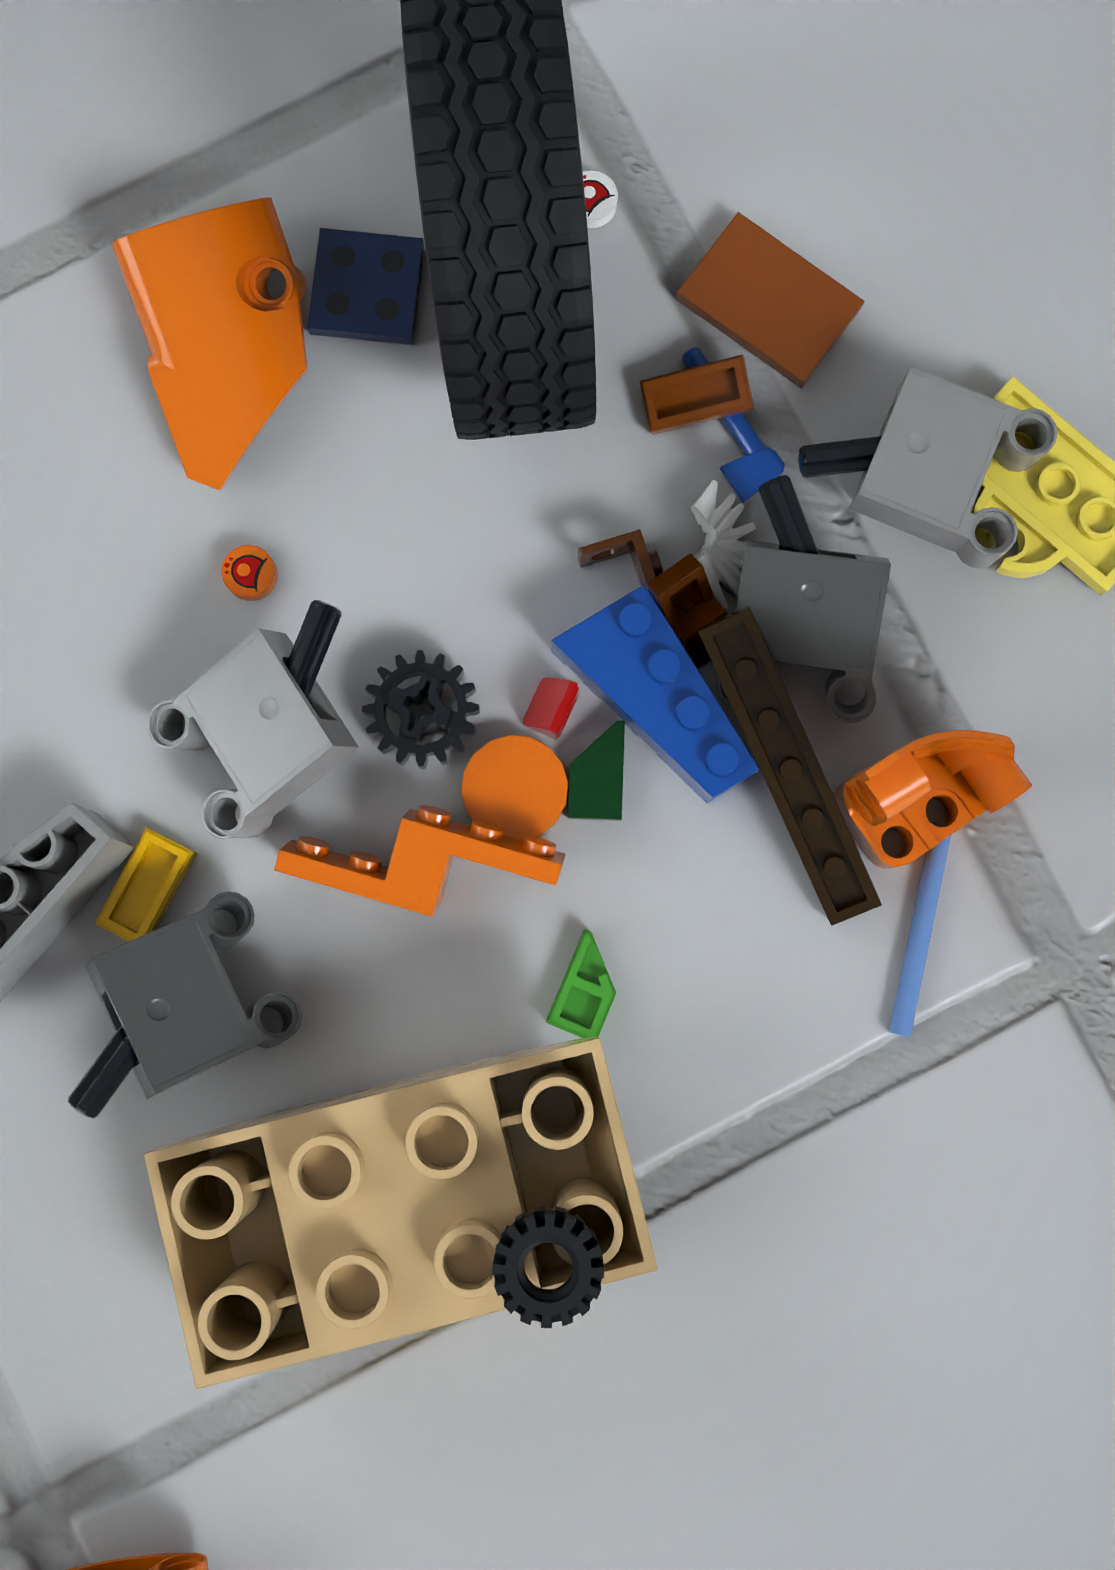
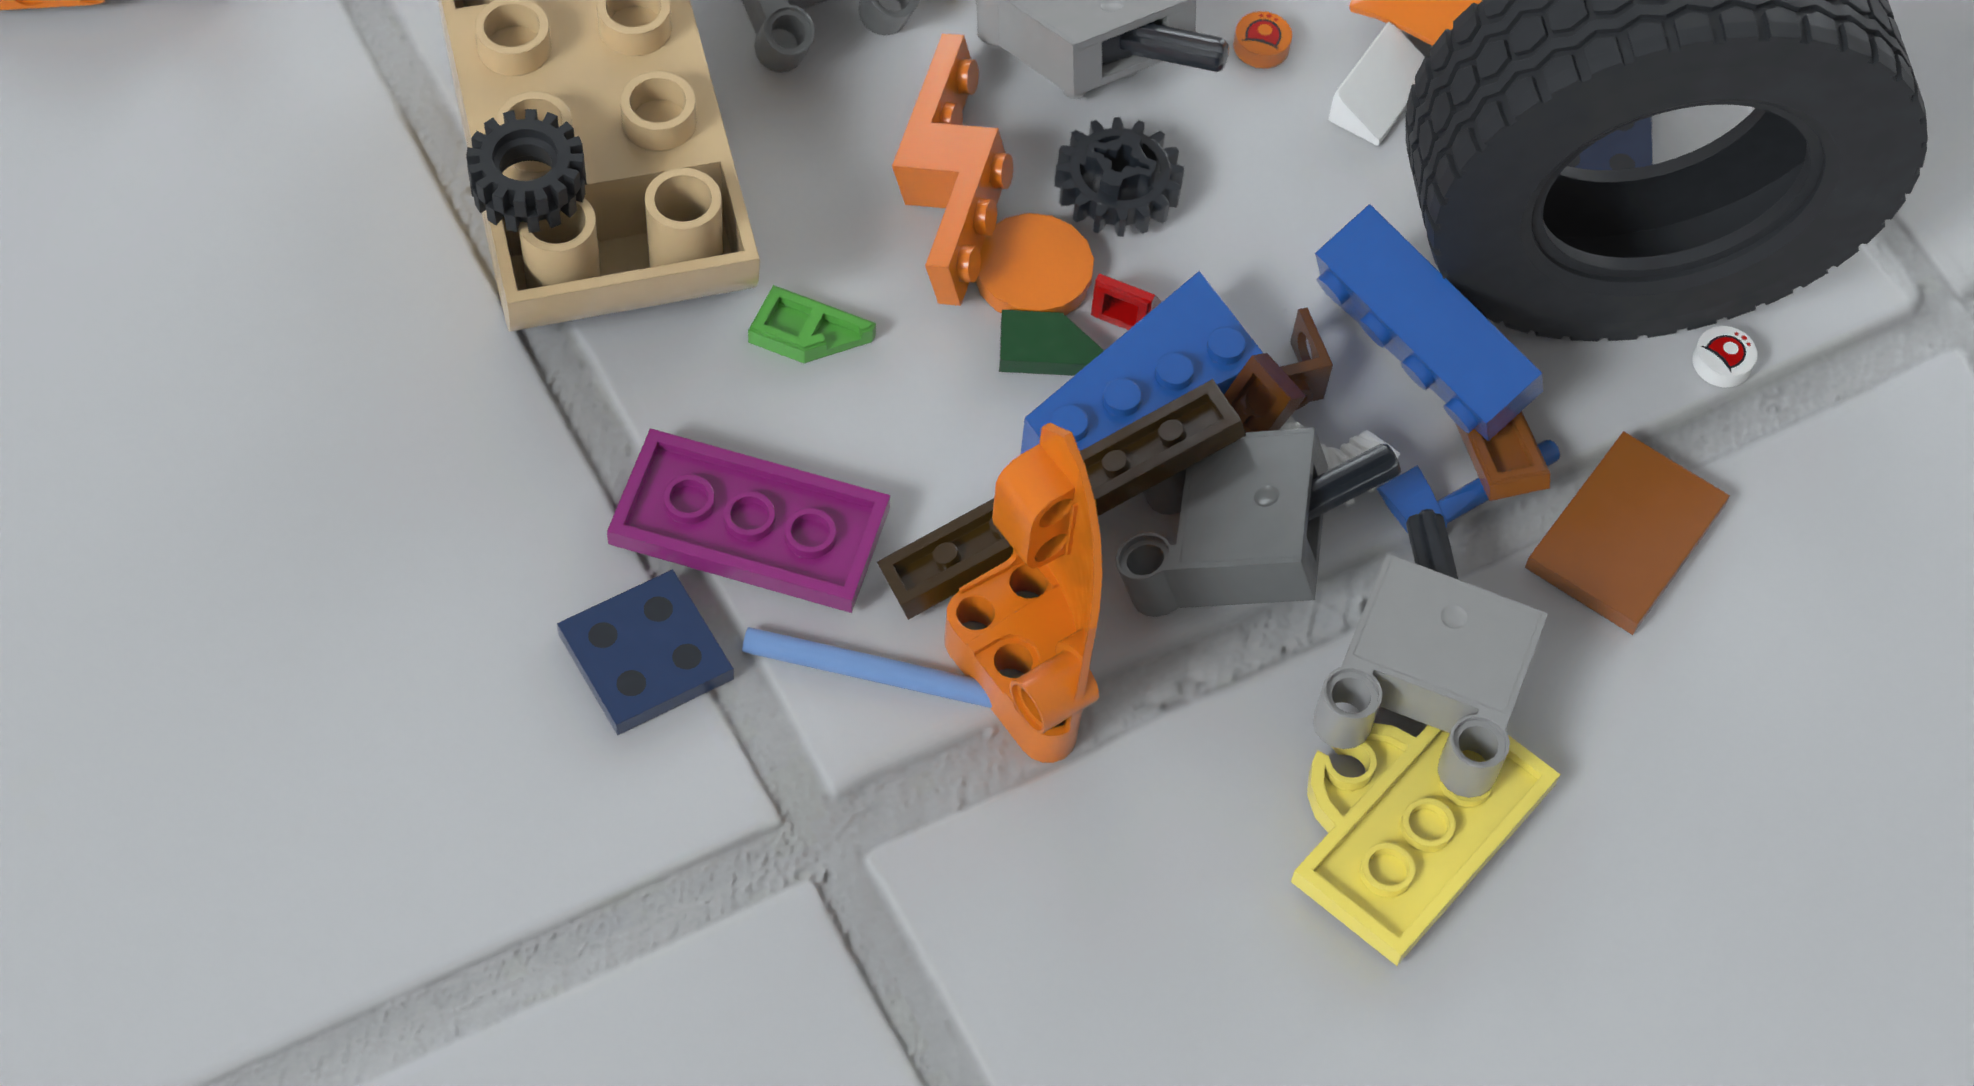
camera: 85 degrees right, 25 degrees down
(305, 468) = (1377, 86): none -> white slope
(594, 460) = (1426, 324): none -> blue wedge
(793, 1036) = (749, 520): none -> magenta plate
(918, 1119) = (645, 651): none -> dark blue tile

